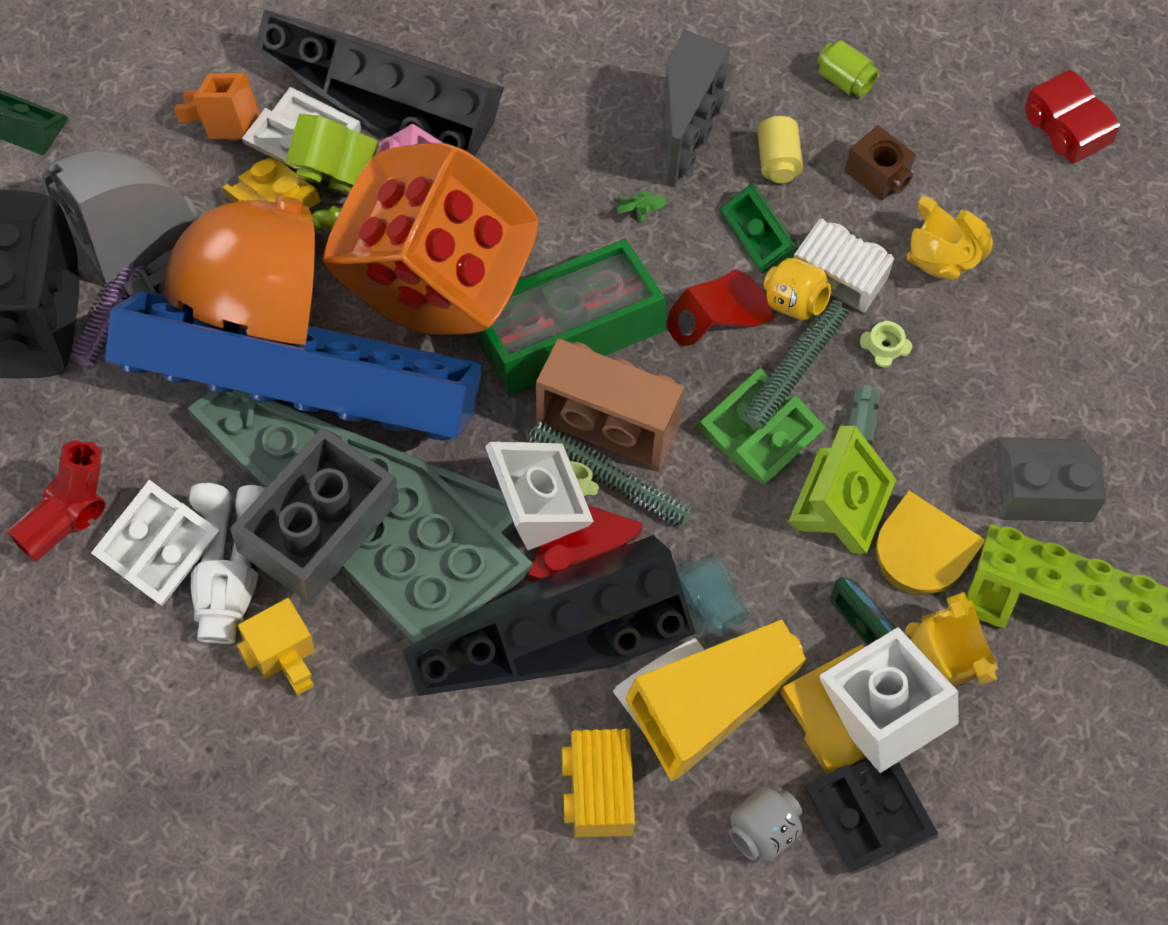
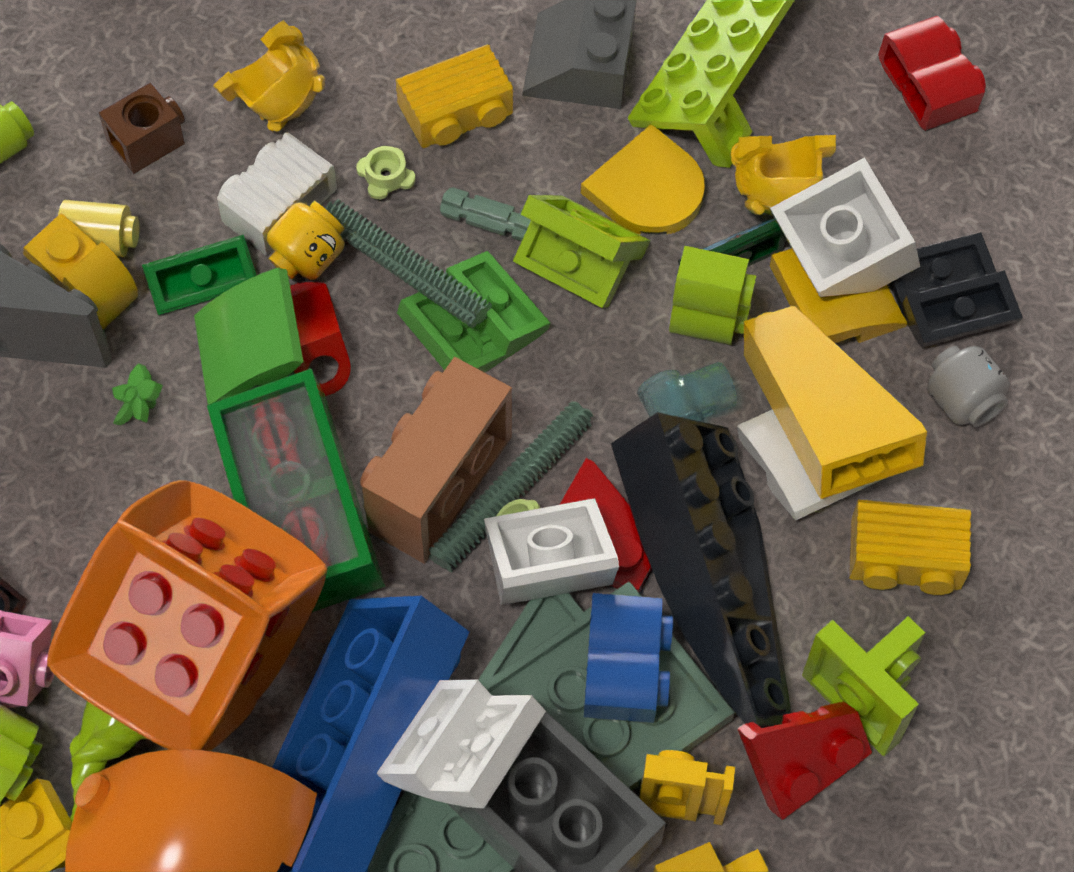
camera: 80 degrees left, 0 degrees up
(351, 431) = (461, 743): none -> white slope
(353, 609) = (682, 787): none -> yellow plate
(397, 706) = (804, 754): none -> red wing
(455, 557) = (624, 658): none -> blue brick
(459, 744) = (870, 680): none -> lime bracket
(698, 262) = (248, 336): none -> bright green slope
(732, 144) = (84, 266): none -> yellow brick
(805, 590) = (711, 295): none -> lime brick
(970, 381) = (455, 97): none -> yellow brick
(1108, 778) = (932, 72): none -> red brick

